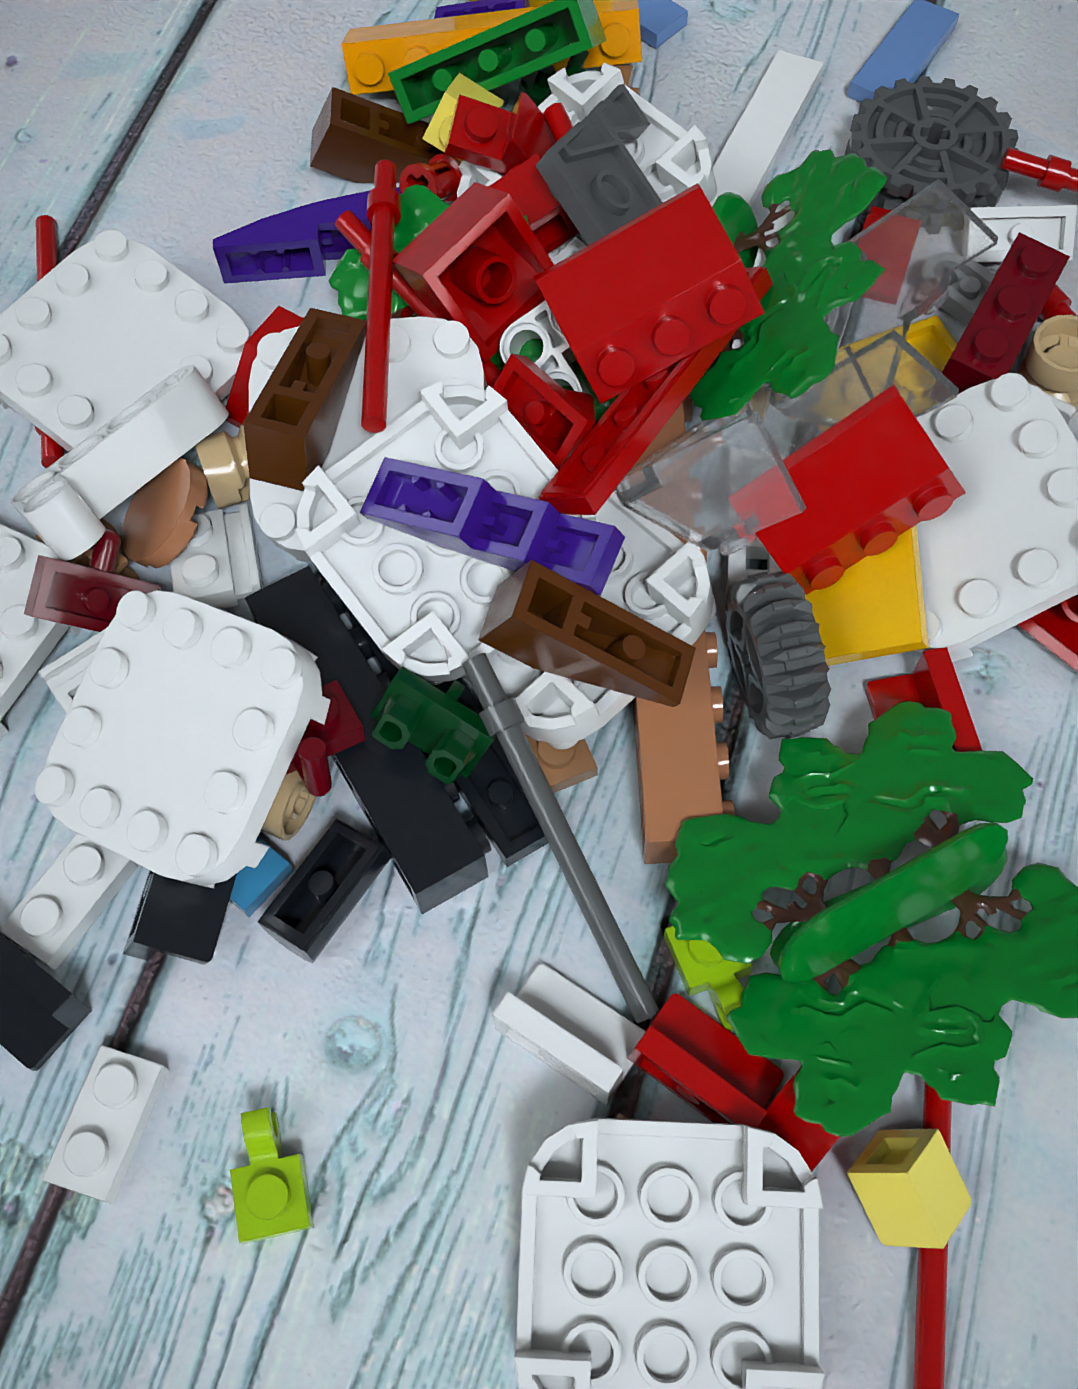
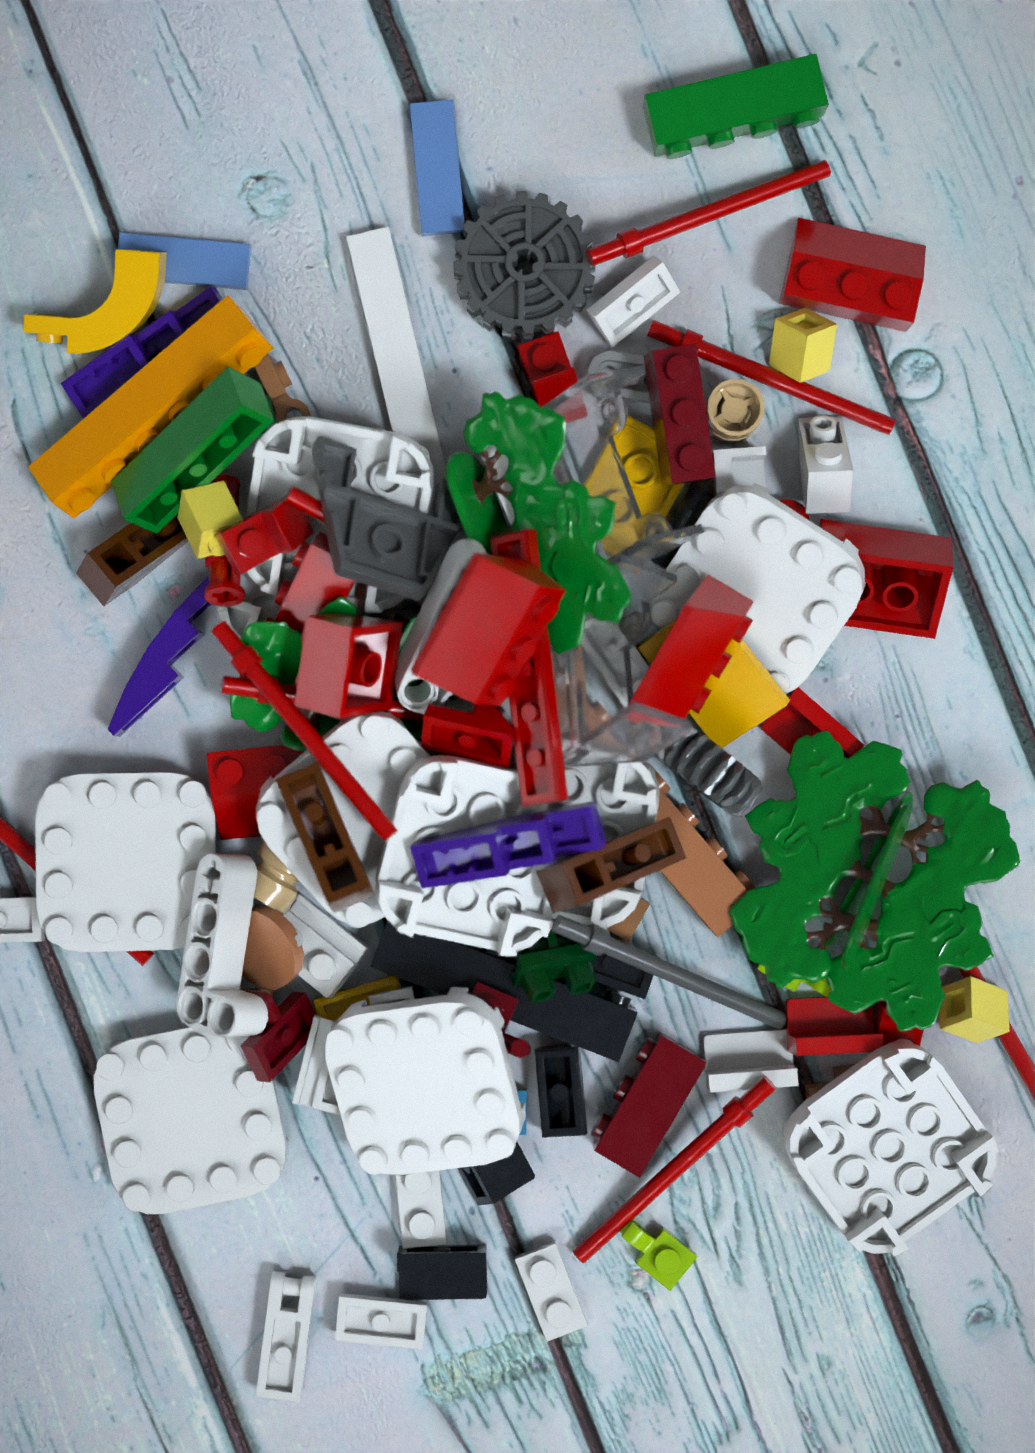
camera: 40 degrees left, 25 degrees up
(409, 981) = (647, 1103): none -> dark red brick
(502, 1063) = (736, 1113): none -> red bar

